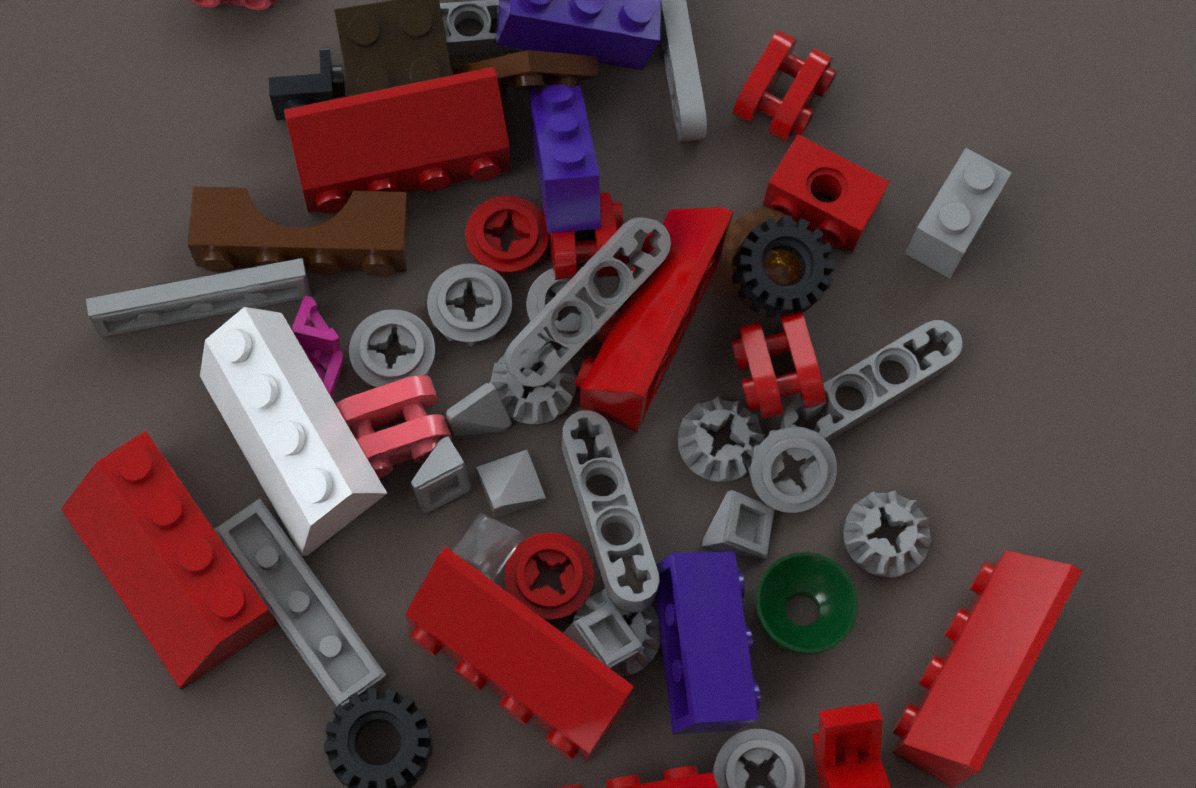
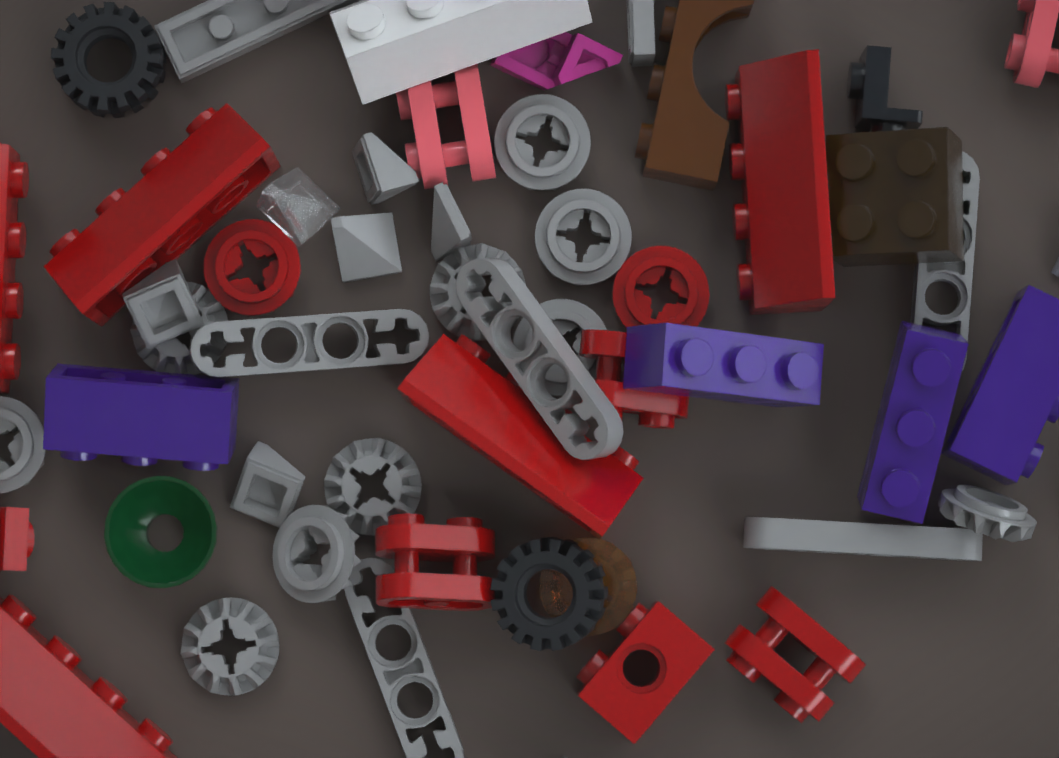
camera: 105 degrees right, 15 degrees up
(536, 68) = (846, 348): reddish brown plate -> none

